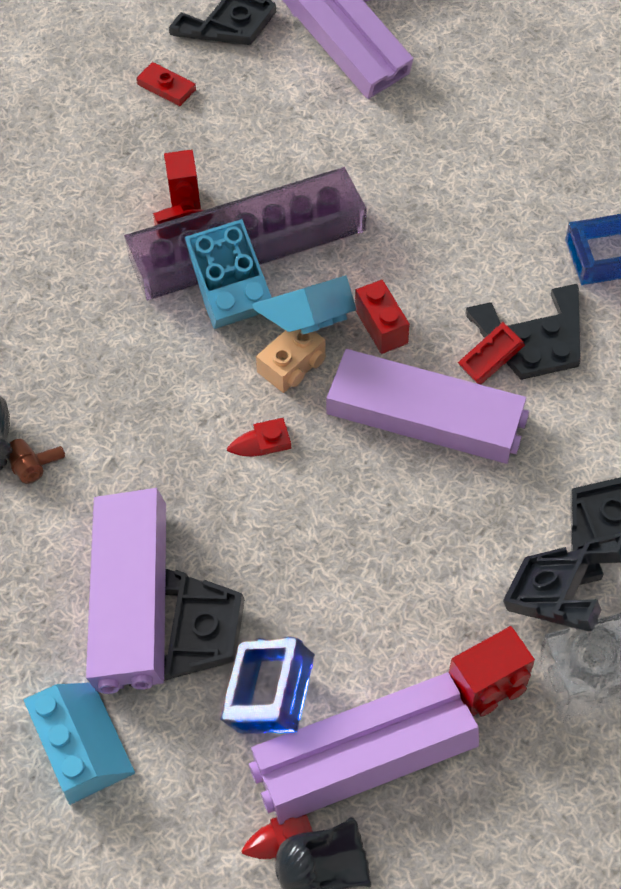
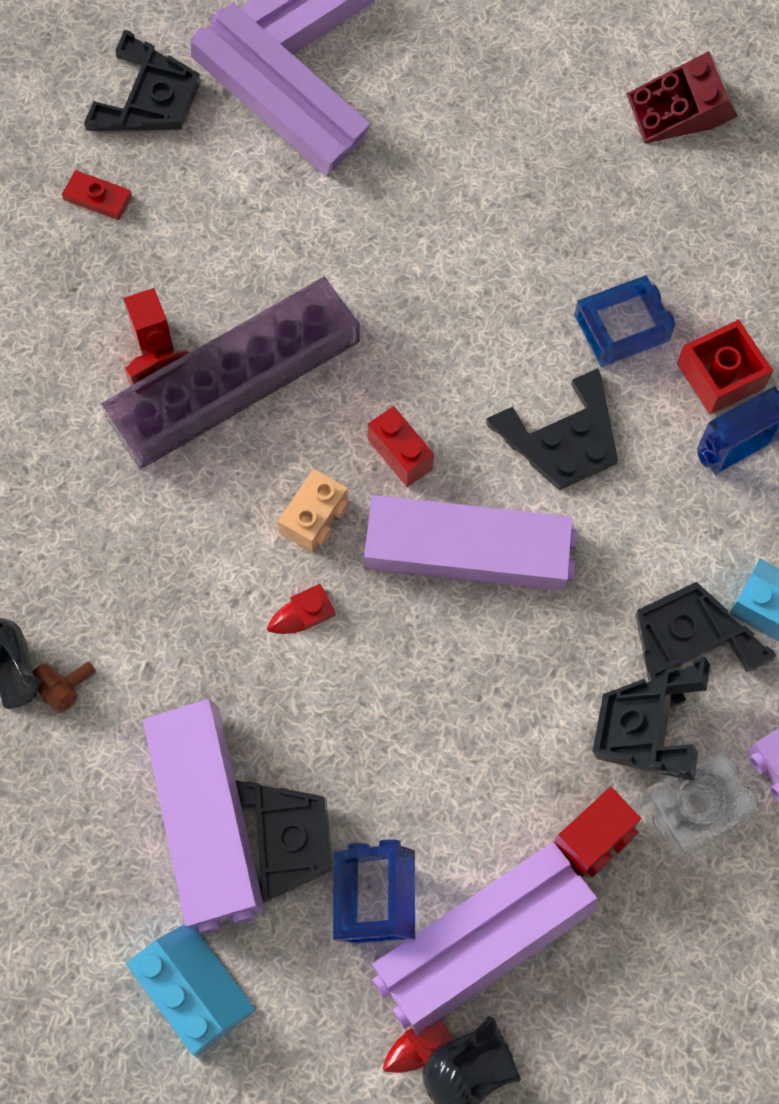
camera: 15 degrees left, 10 degrees up
(227, 273) = (226, 428): medium azure slope -> none
(310, 306) = (321, 453): medium azure slope -> none
(491, 353) = (524, 469): red plate -> none

